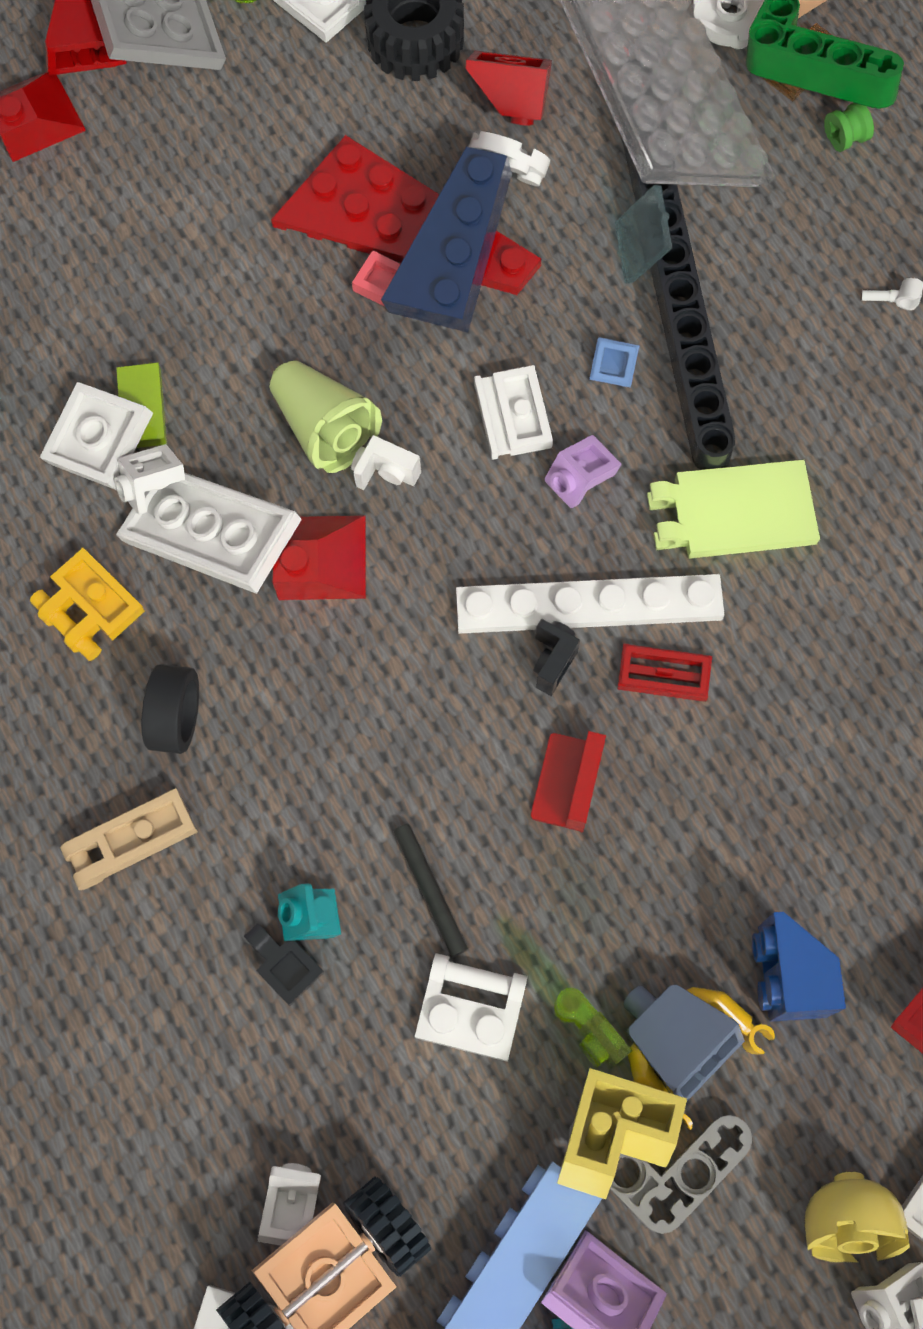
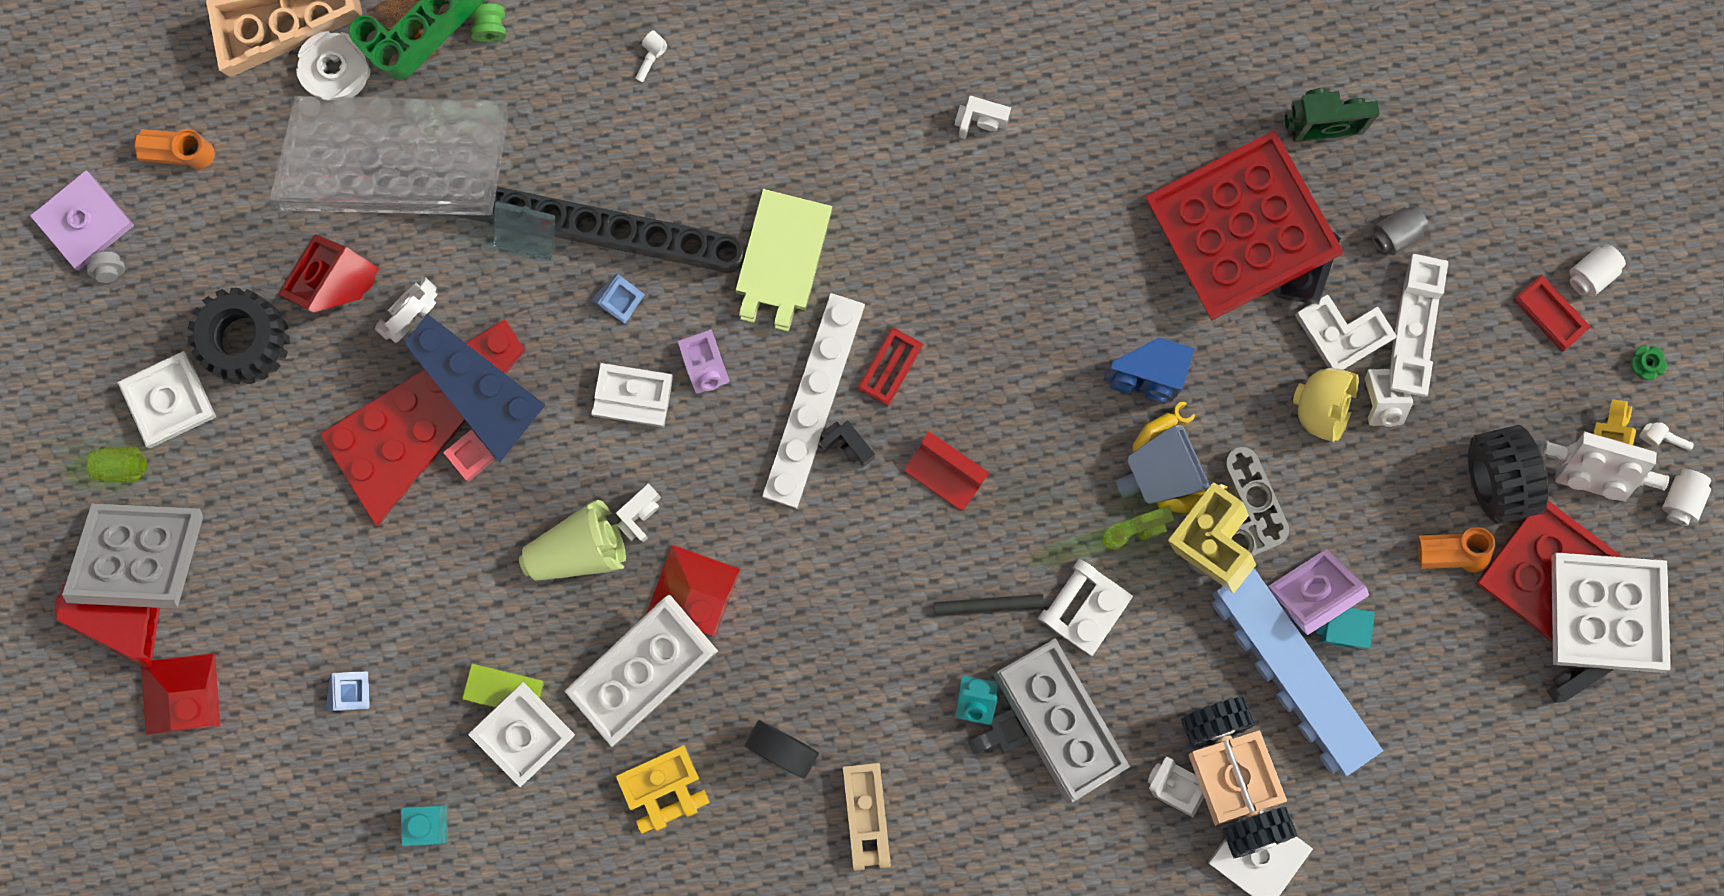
camera: 70 degrees left, 10 degrees up
(88, 260) = (348, 691): none -> slope
(146, 471) = (576, 703): white bracket -> none
(320, 1028) = (1061, 721): none -> light grey tile

